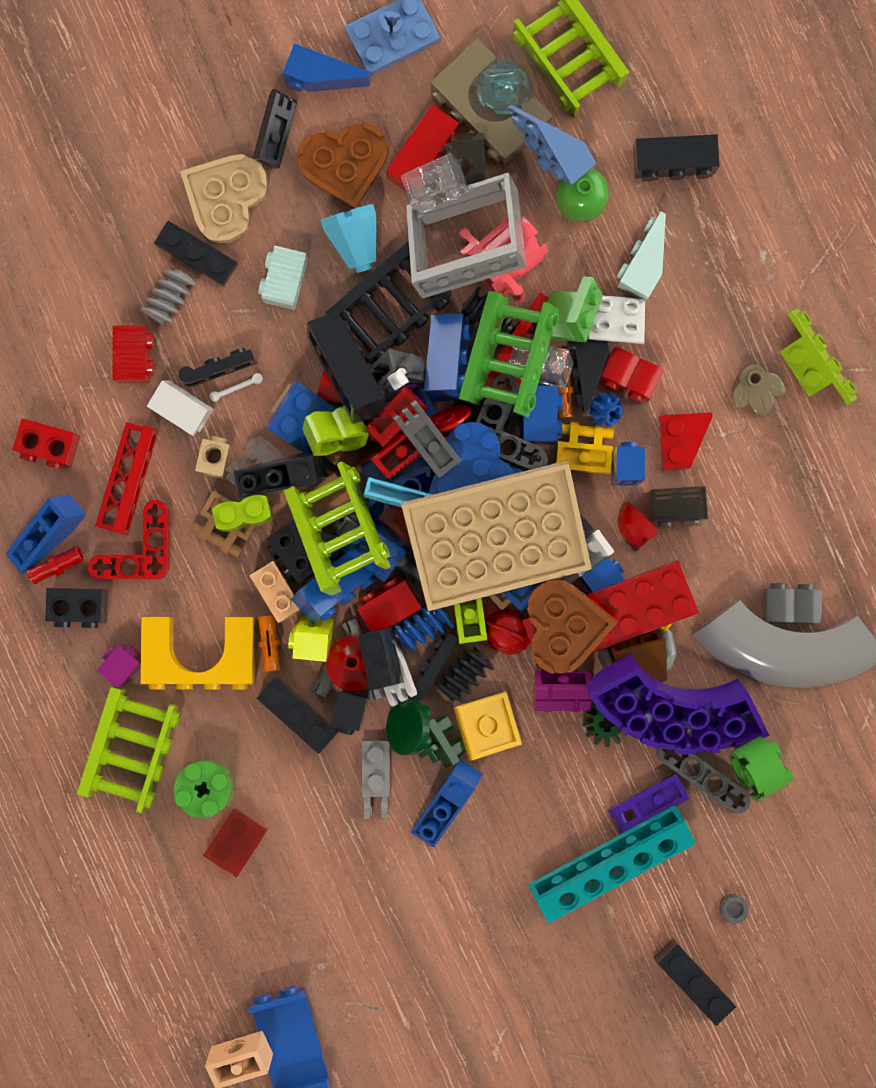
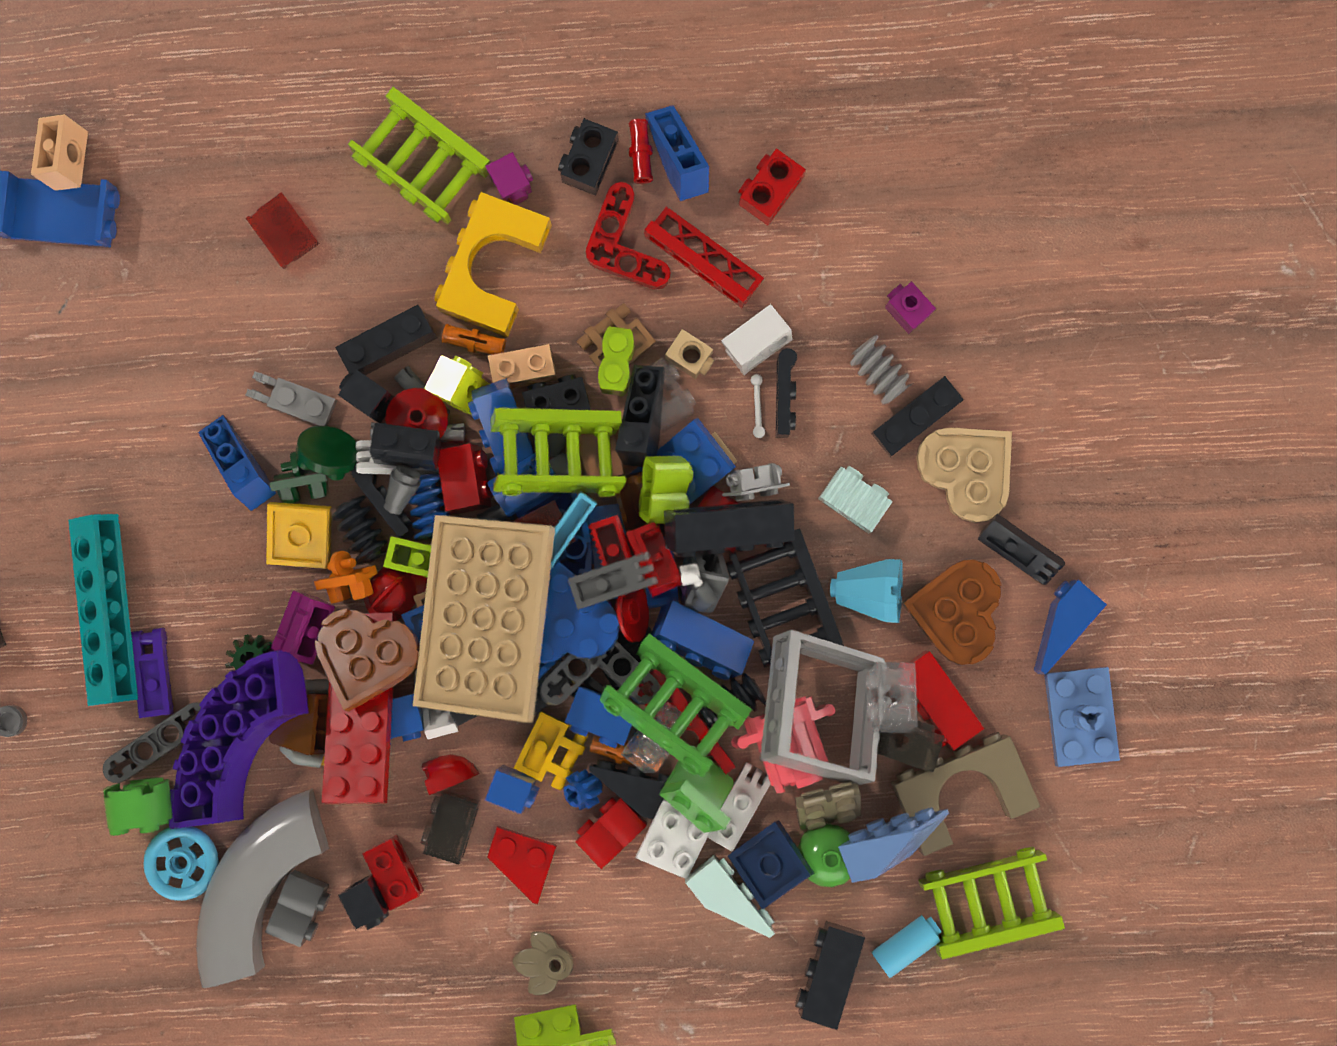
camera: 110 degrees right, 0 degrees up
(106, 292) = (909, 306): none -> magenta brick
(132, 354) = (833, 309): red brick -> none
(189, 795) = (347, 201): bright green brick -> none
(298, 360) = (744, 485): none -> light grey hinge
(416, 650) = (401, 488): none -> dark grey cone
(503, 86) = (976, 815): clear light blue tile -> none
(505, 672) = (342, 575): none -> orange hips
(544, 210) = (819, 806): none -> dark tan plate
(567, 277) = (740, 806): none -> white hinge
(607, 235) = (770, 864): none -> dark blue tile
(629, 105) = (907, 945): none -> medium azure brick
(732, 538) = (393, 872): none -> red brick
(763, 548) = (364, 903): none -> black brick
(810, 701) = (160, 879): none -> medium azure plate

